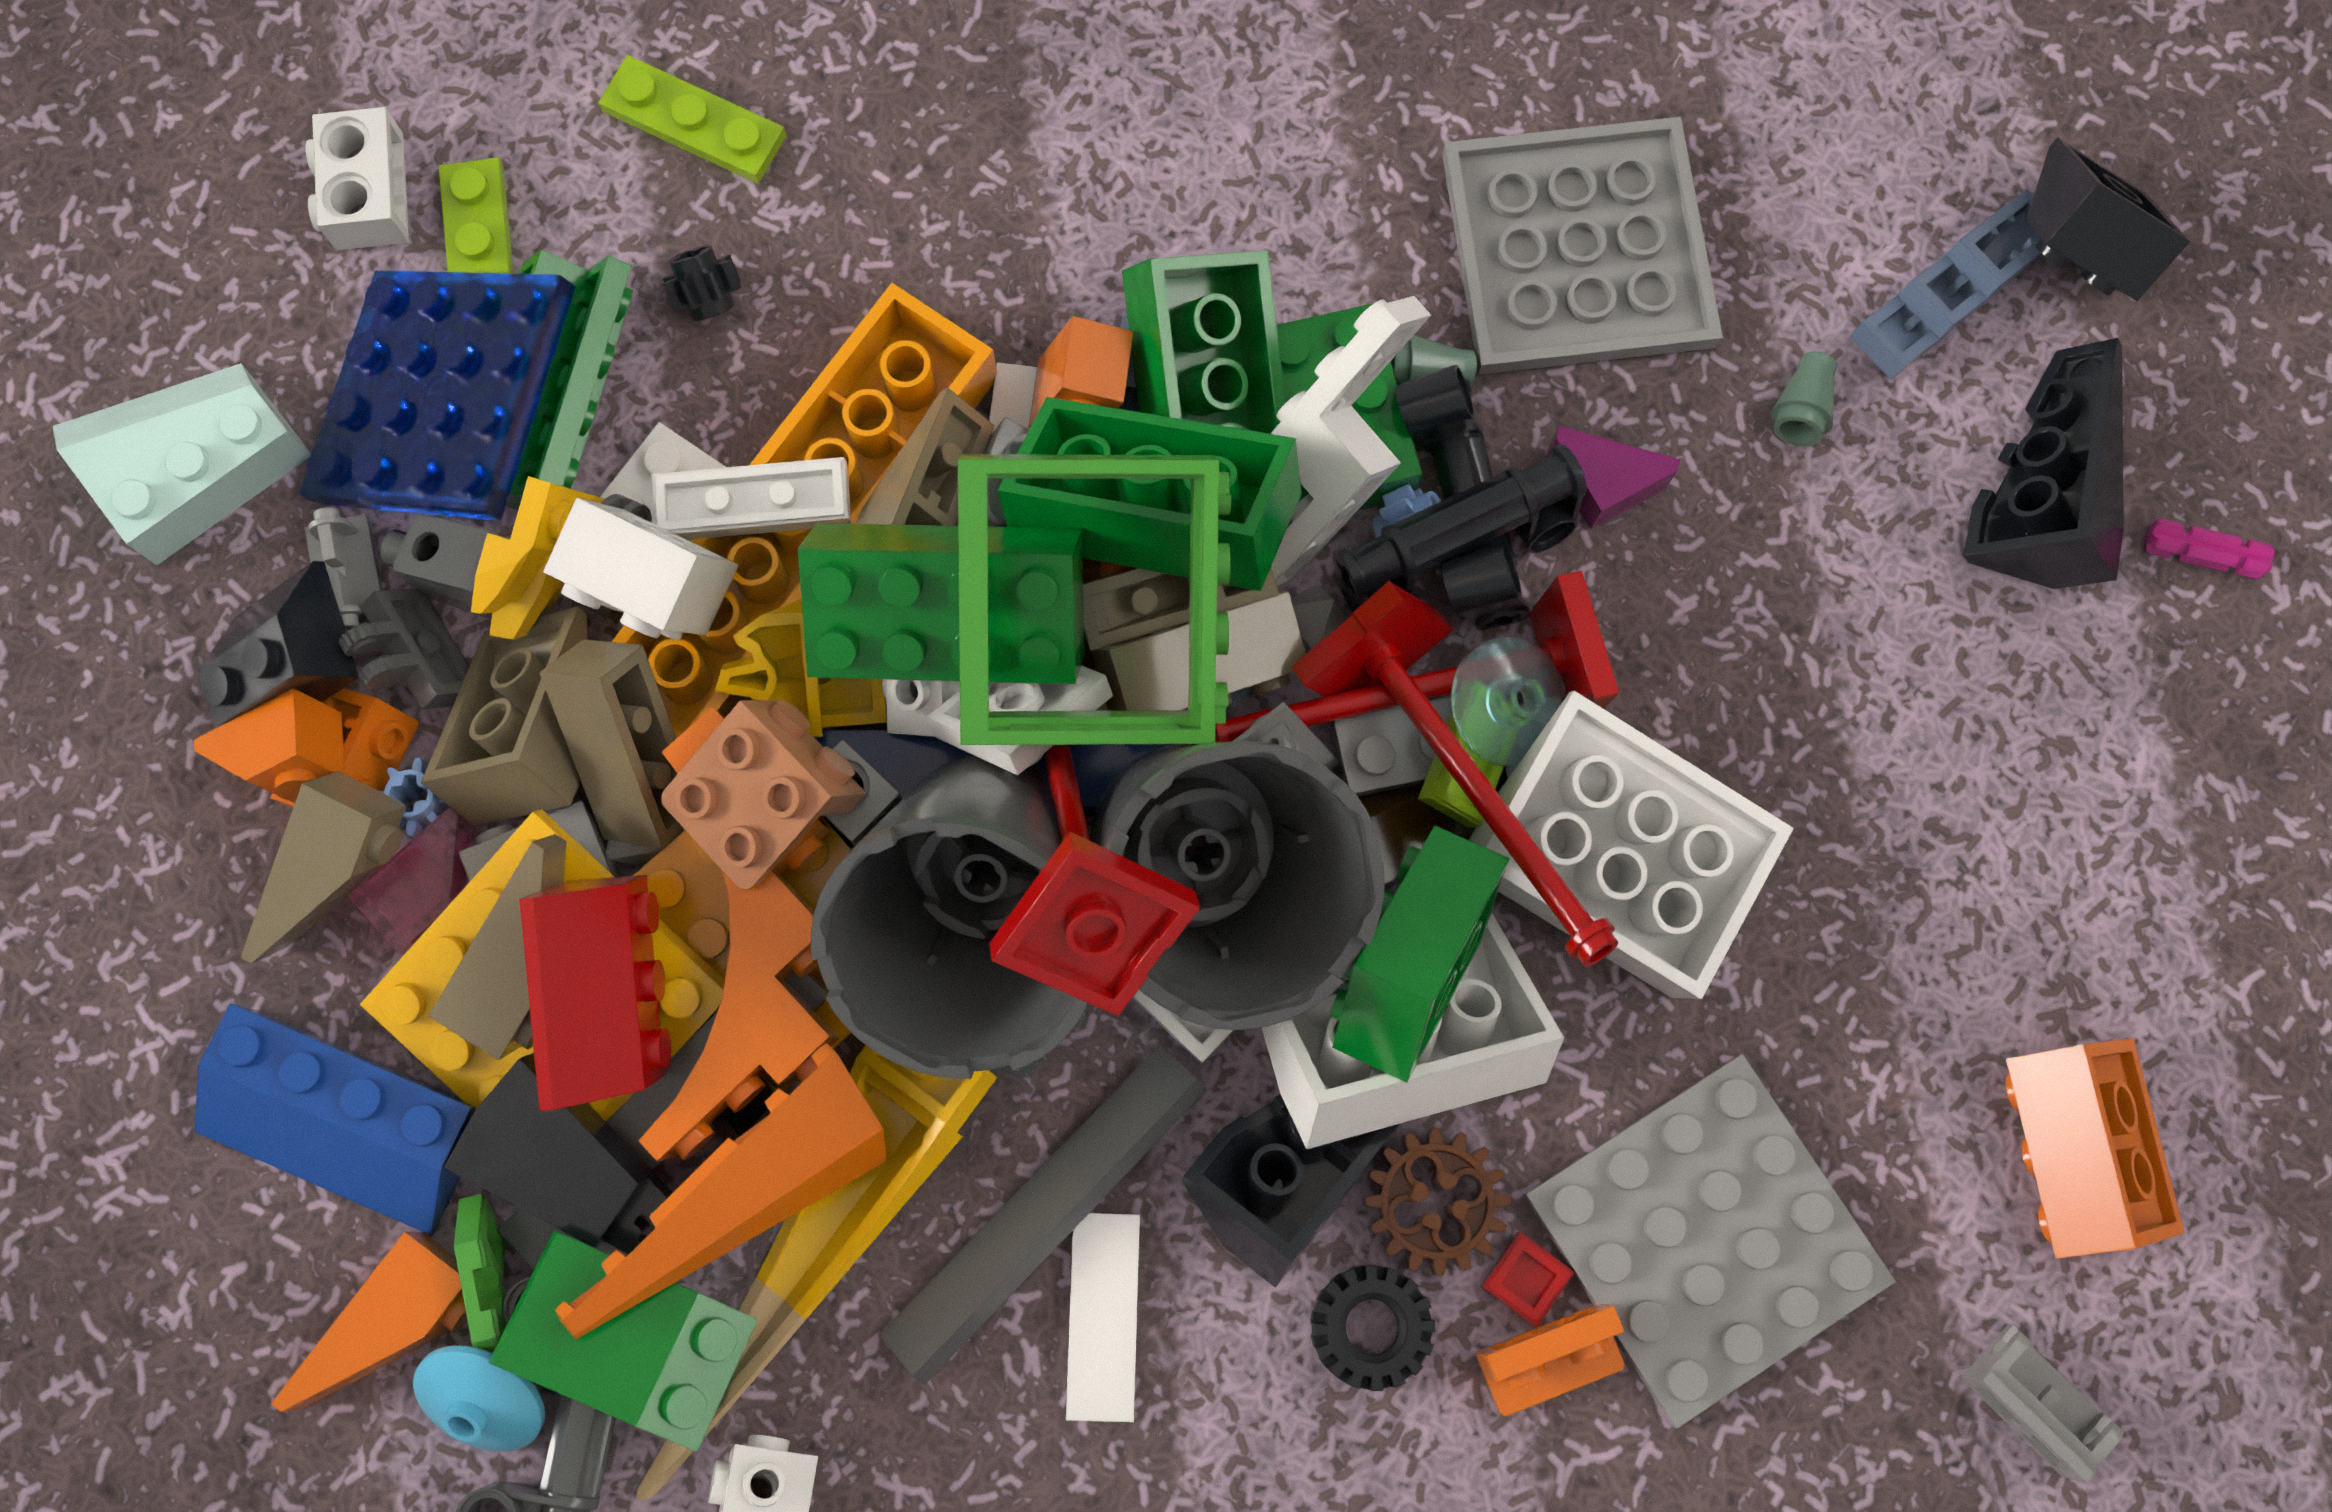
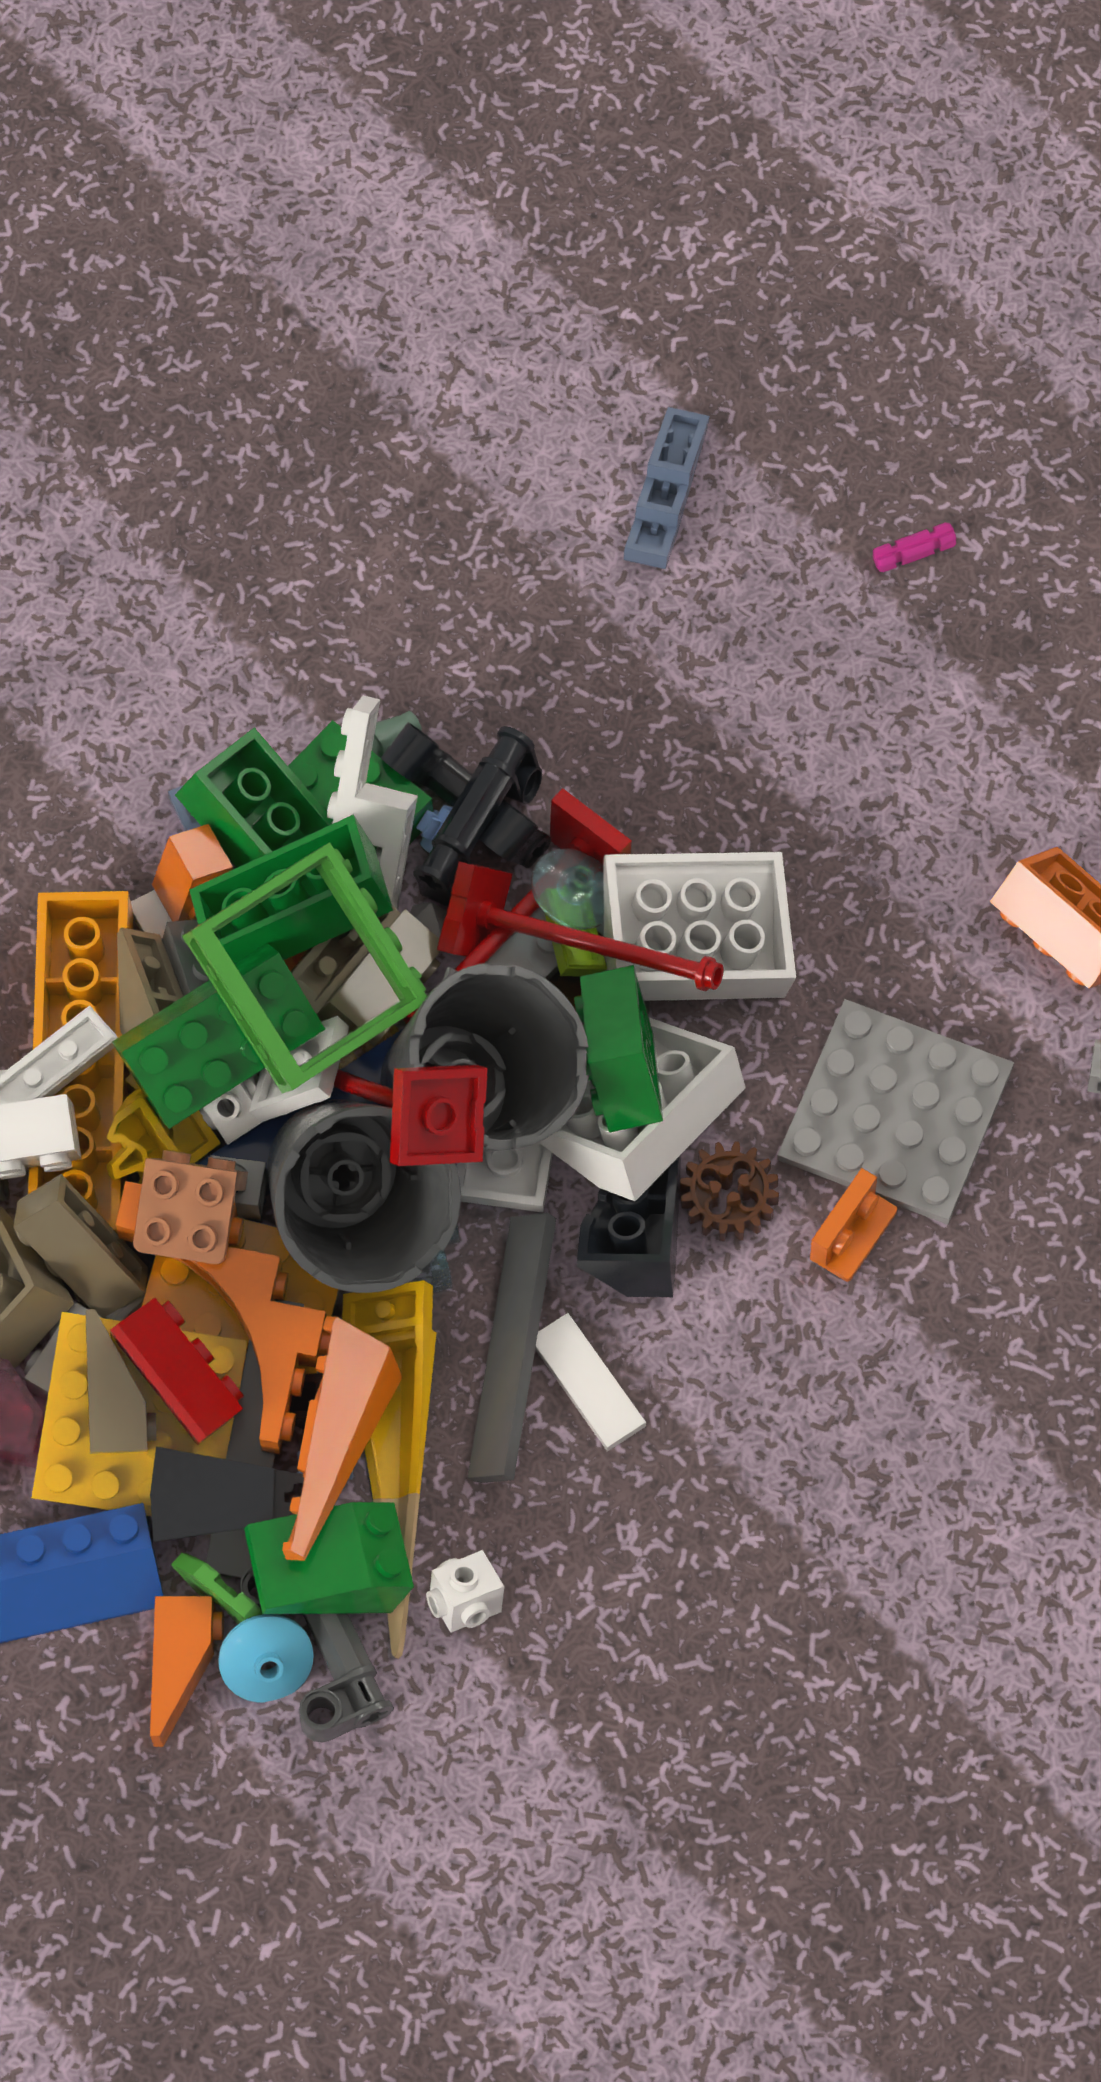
camera: 30 degrees left, 10 degrees down
(1413, 1327) = (742, 1256): black tyre -> none
(1527, 1279) = (810, 1200): red tile -> none
(1581, 245) = (427, 609): light grey plate -> none
(1615, 473) = (545, 725): magenta slope -> none
(1807, 402) = (626, 616): sand green cone -> none
(2063, 495) = (809, 570): black wedge -> none
(2101, 224) = (722, 401): black slope -> none

